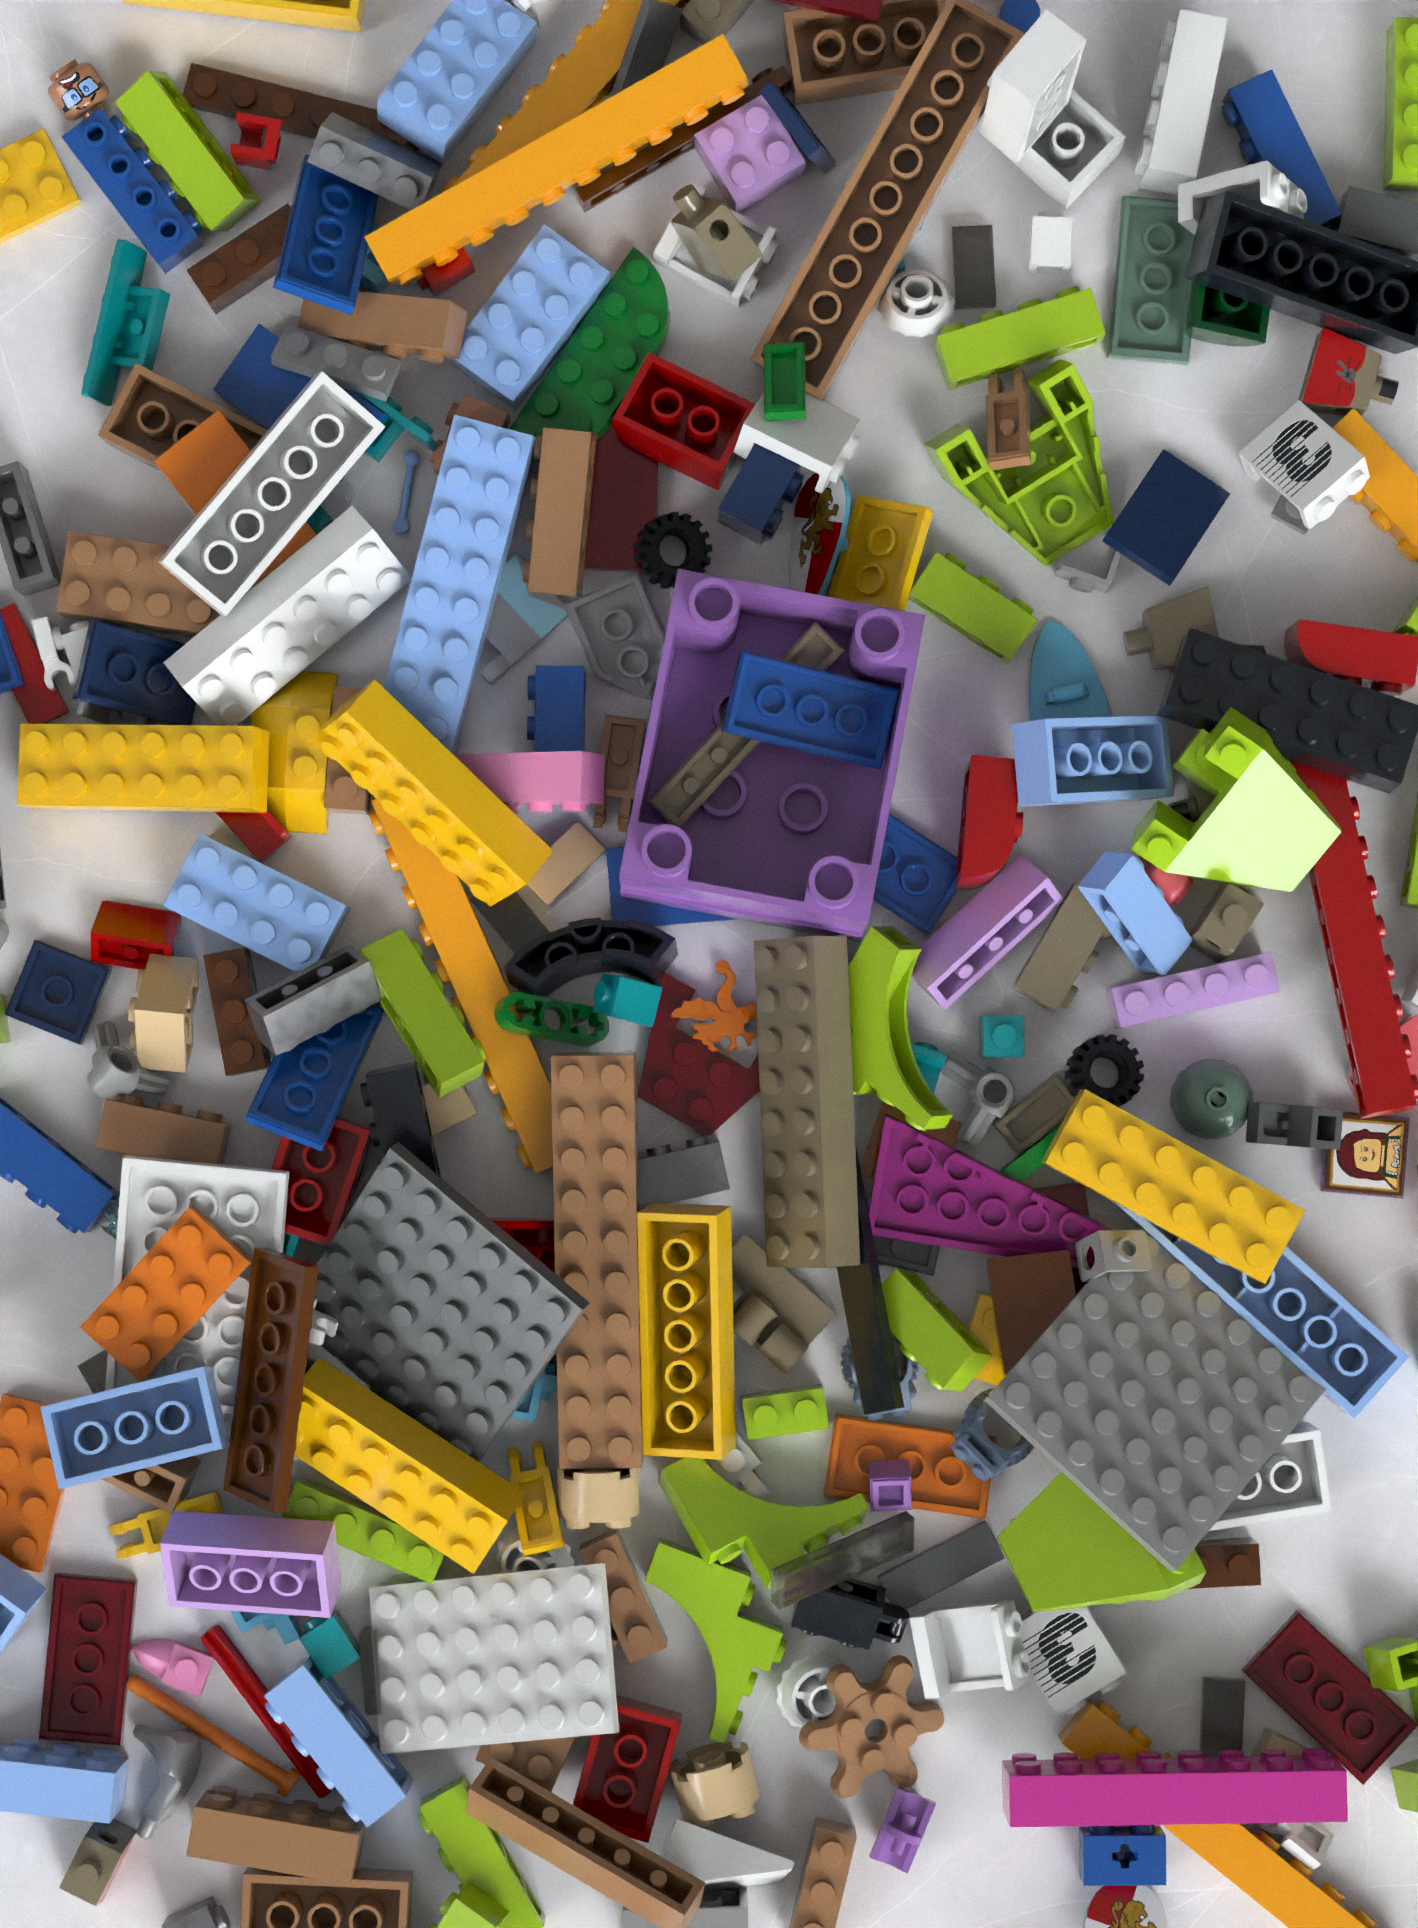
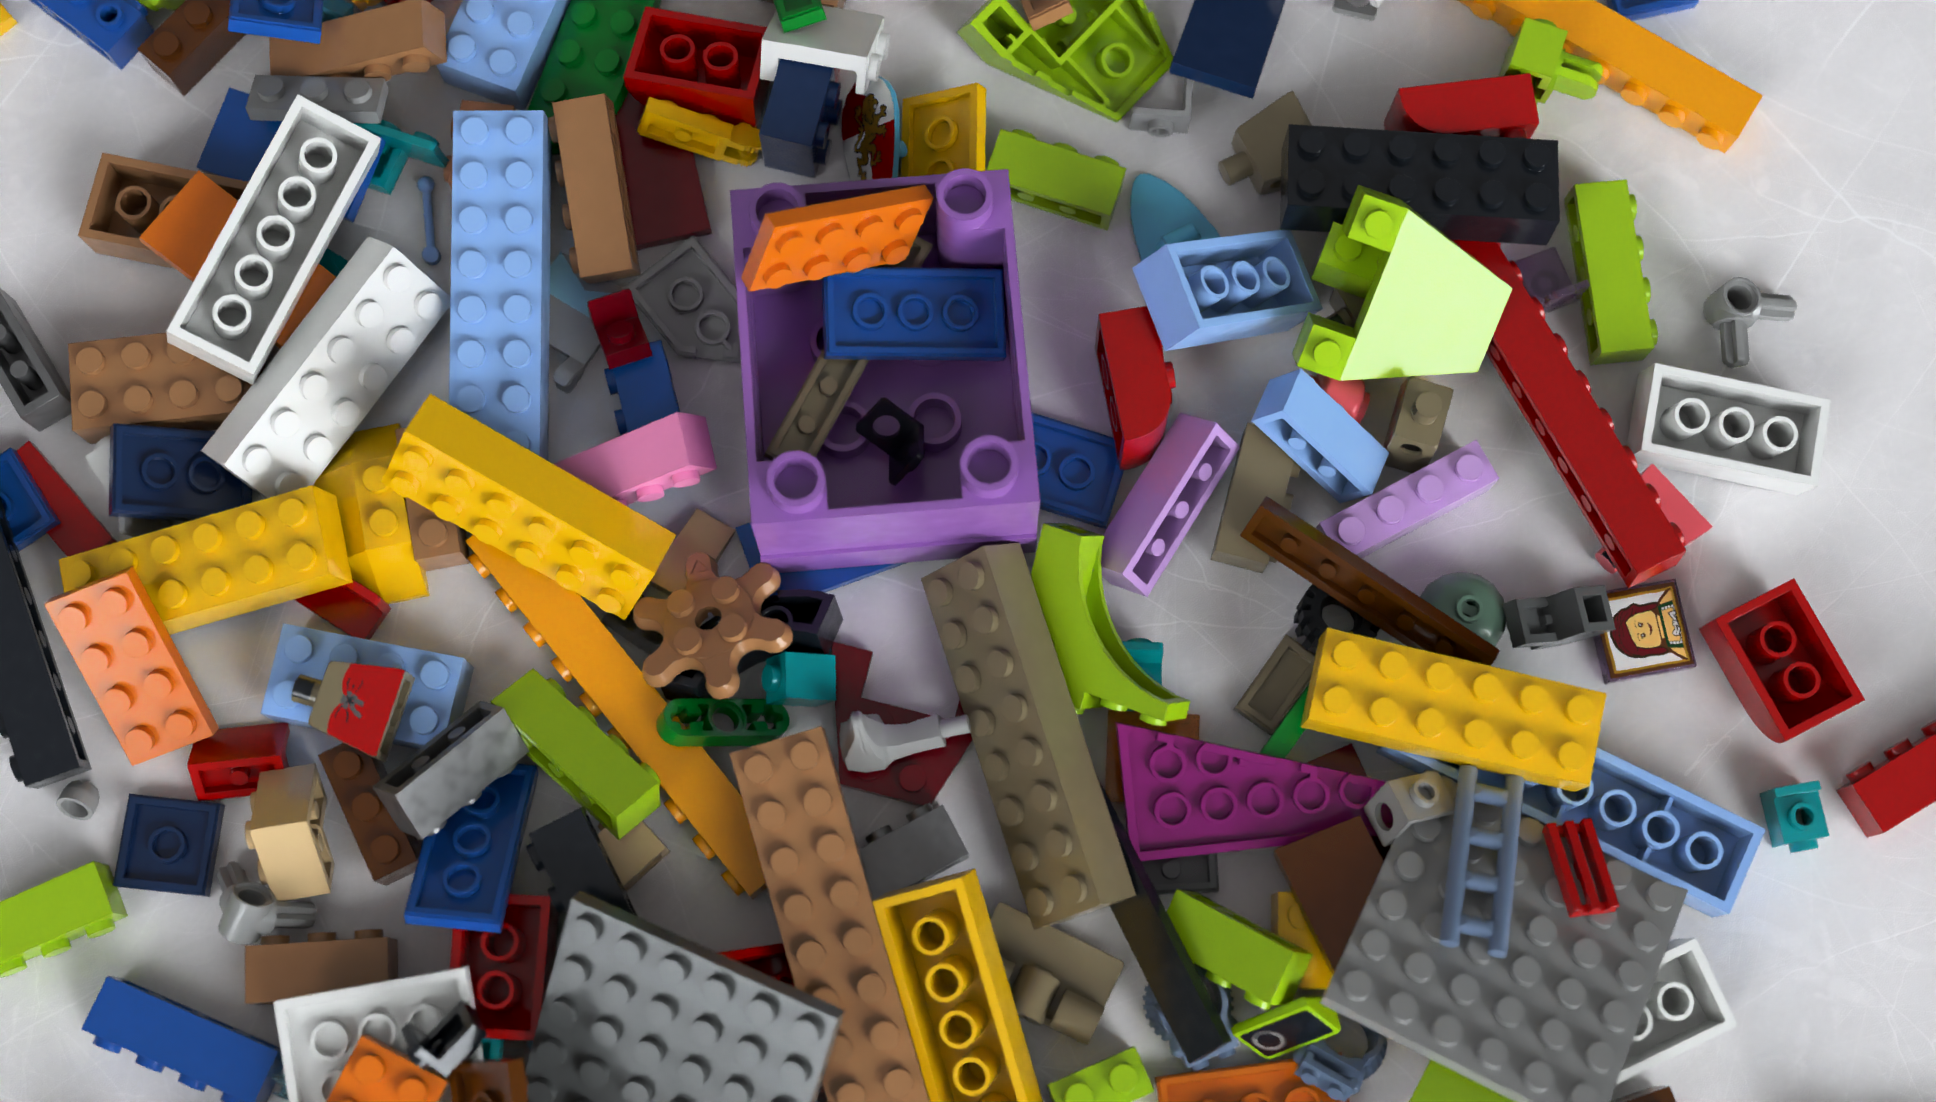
camera: 20 degrees left, 10 degrees down
(49, 647) = (78, 477): white plate -> none
(63, 835) = (132, 666): none -> orange plate
(127, 324) = (88, 122): teal bracket -> none
(246, 926) = (357, 704): none -> torso
(259, 1232) = (448, 1042): none -> black bracket
(550, 648) = (619, 328): none -> dark red slope
(563, 960) = (718, 649): none -> medium nougat plate
(622, 750) = (726, 426): medium nougat hinge -> none
(650, 541) = (697, 197): black tyre -> none
(667, 481) = (699, 133): none -> yellow hinge
(673, 1074) = (872, 745): none -> light grey animal
(727, 1018) = (915, 672): orange piece -> none
(759, 639) = (835, 237): none -> orange plate
(769, 825) = (903, 447): none -> black bracket
(954, 1408) = (1288, 1027): none -> slope
(977, 1081) = (1220, 693): light grey axle -> none
(1001, 1036) = (1216, 609): teal brick -> none
(1133, 1059) = (1361, 585): none -> reddish brown plate
(1134, 1329) = (1460, 877): none -> sand blue bar
(1241, 1312) = (1596, 861): none -> red tile
(1384, 820) = (1548, 280): none -> clear purple bracket

